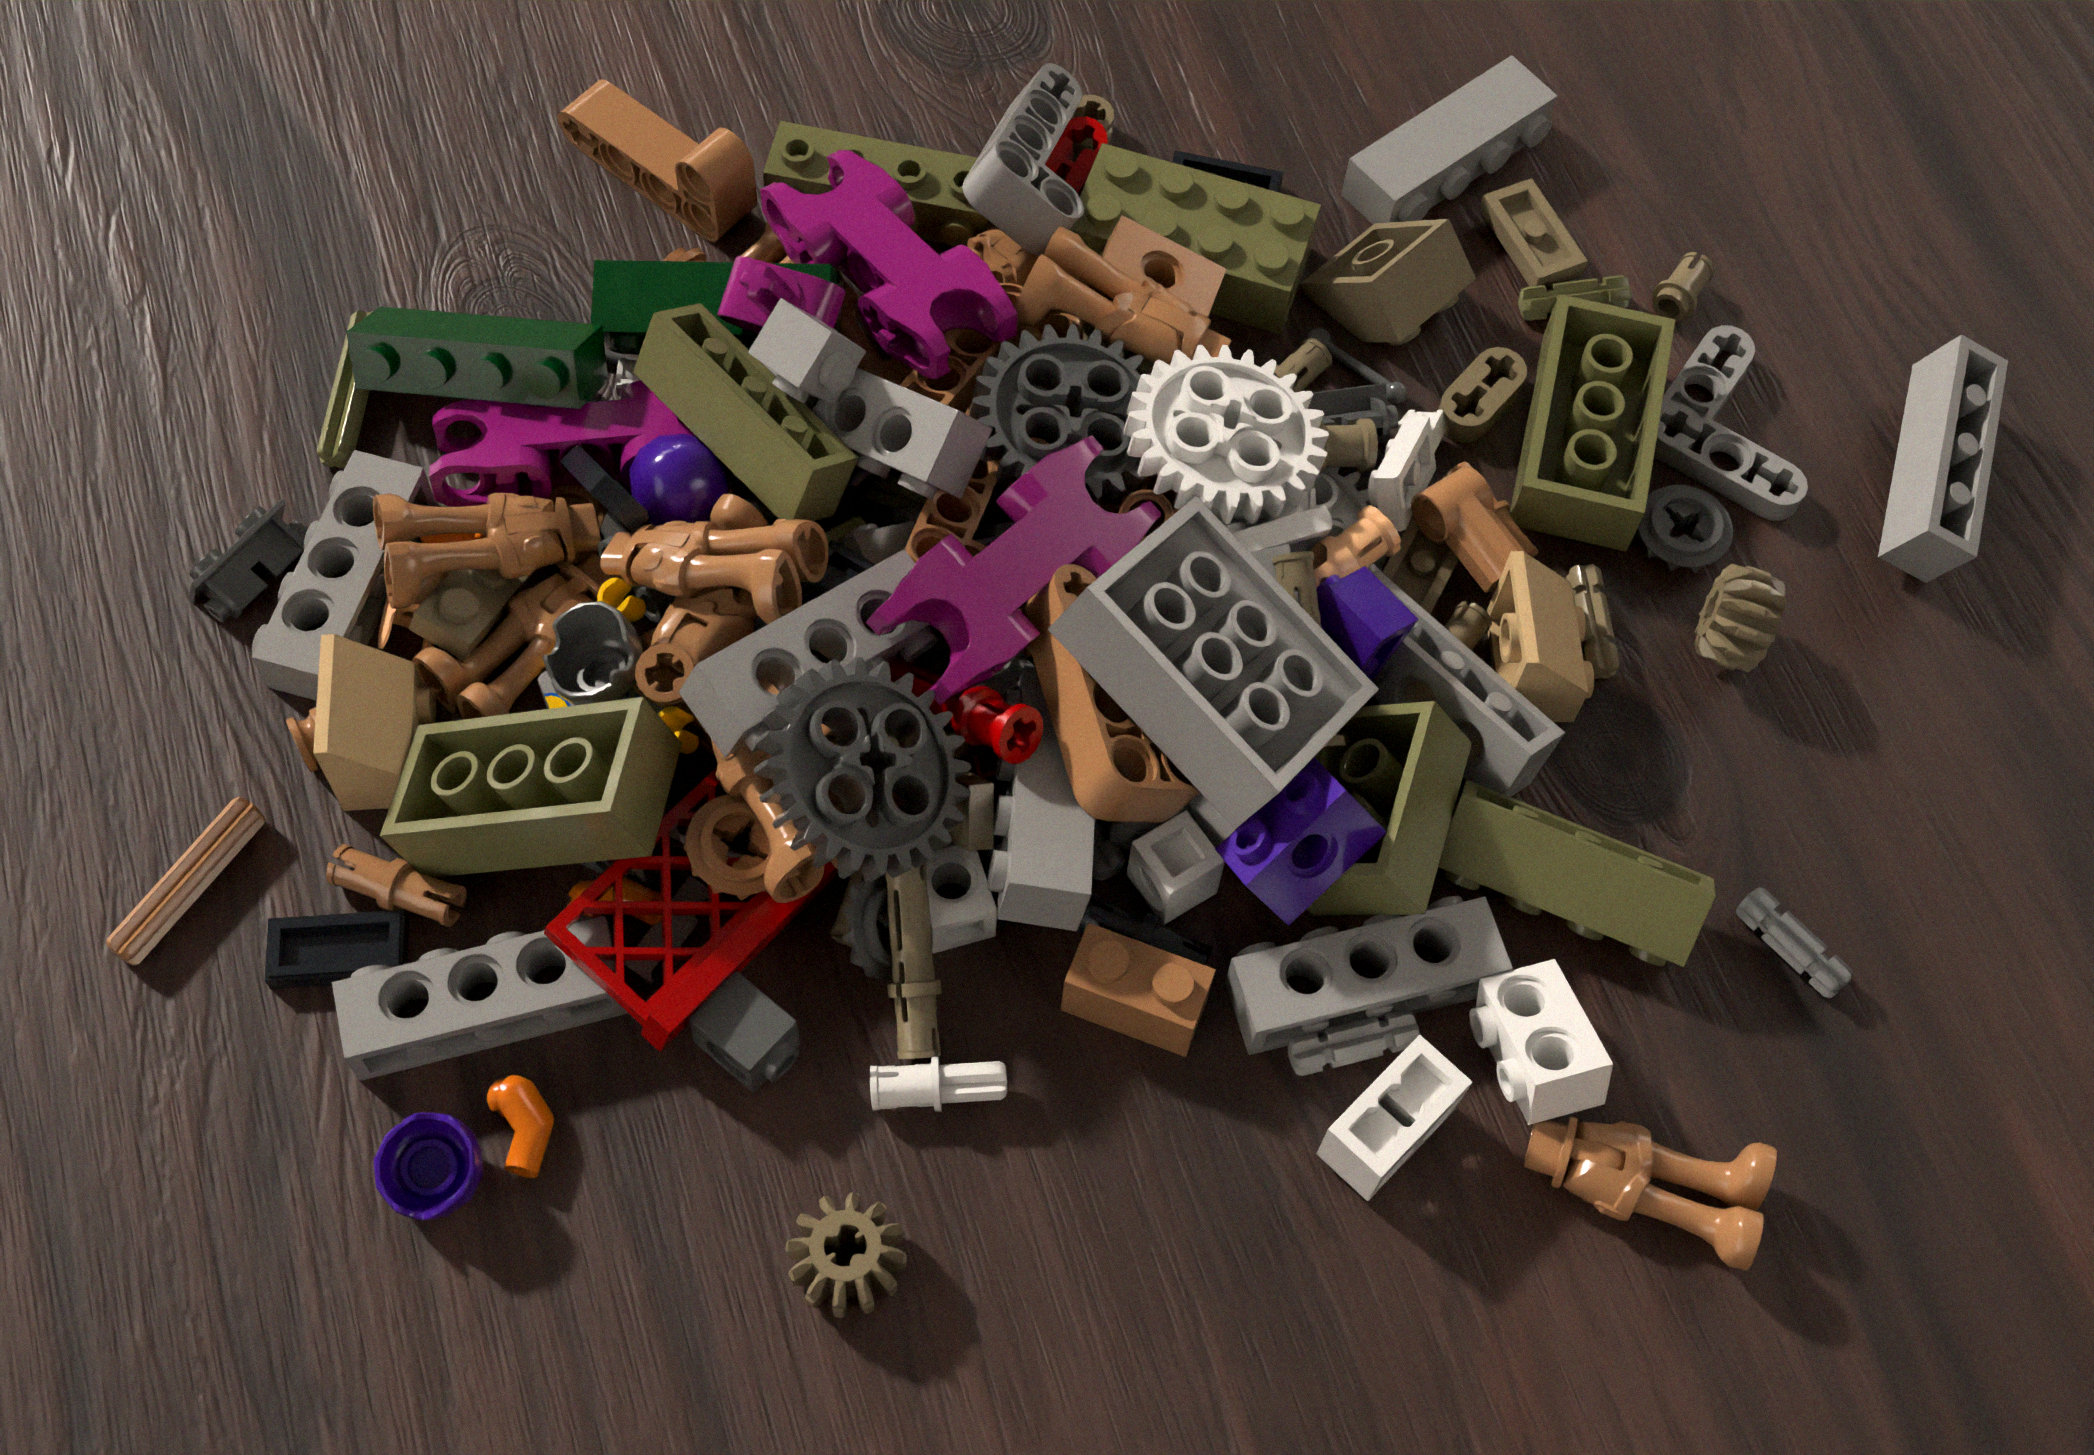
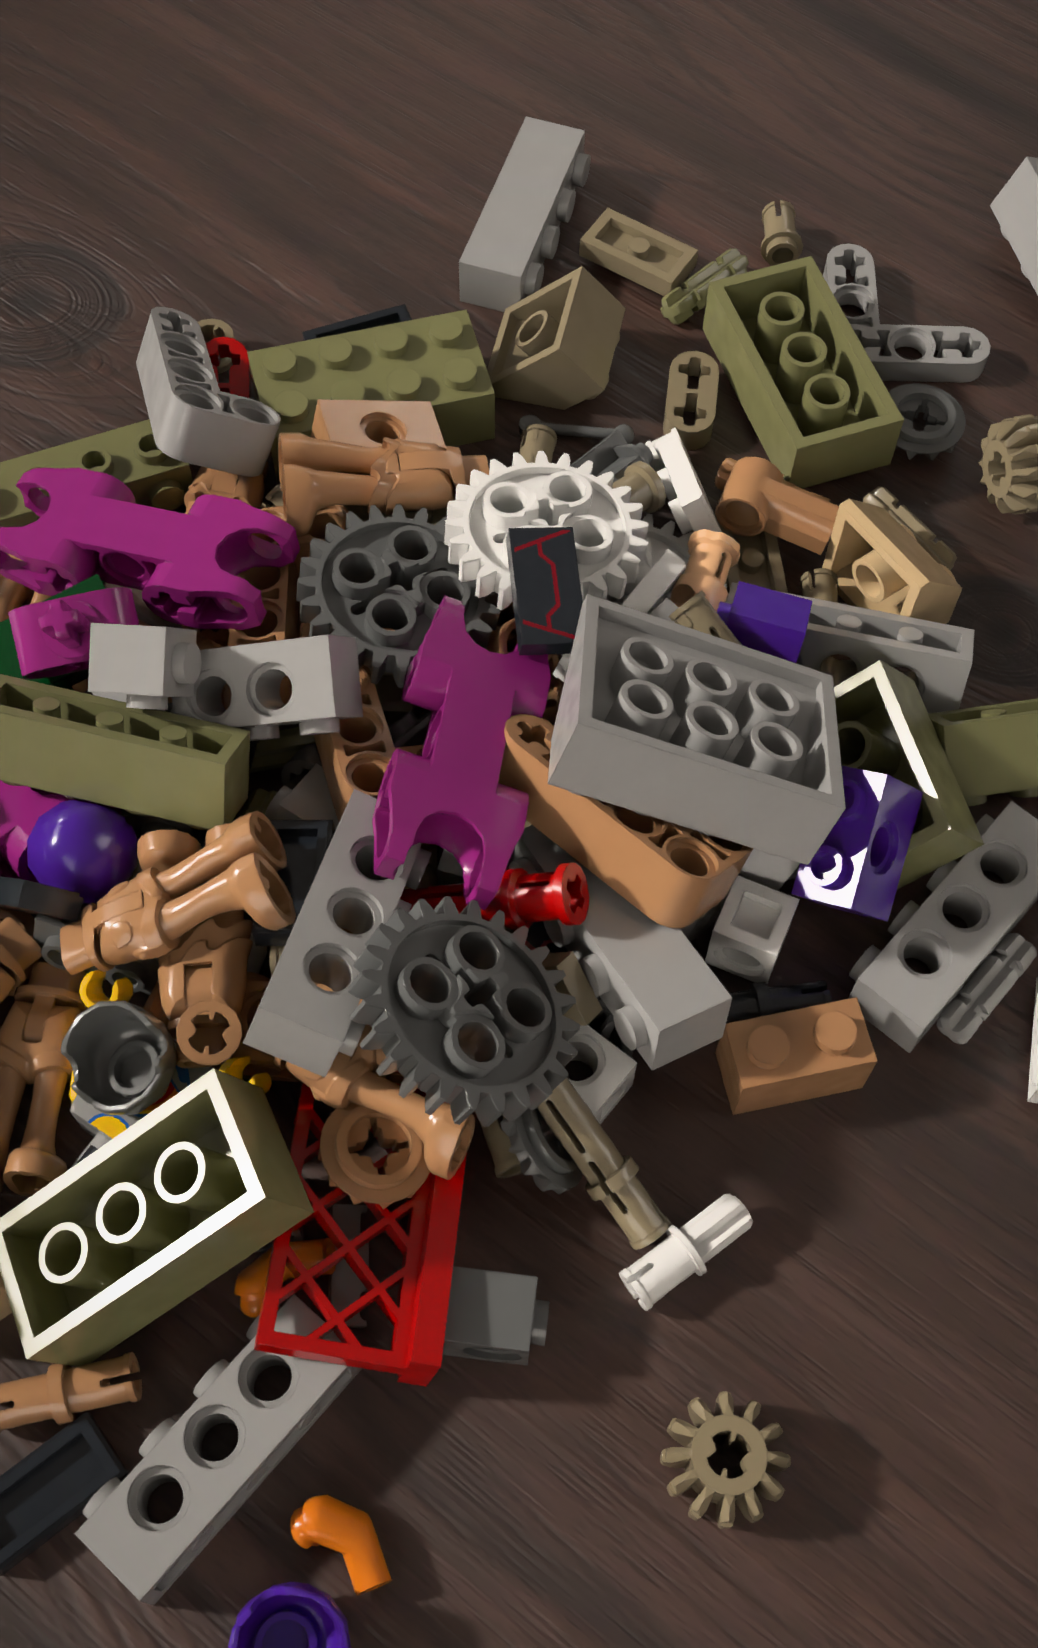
camera: 30 degrees left, 0 degrees up
(1176, 471) = (544, 588): none -> black tile

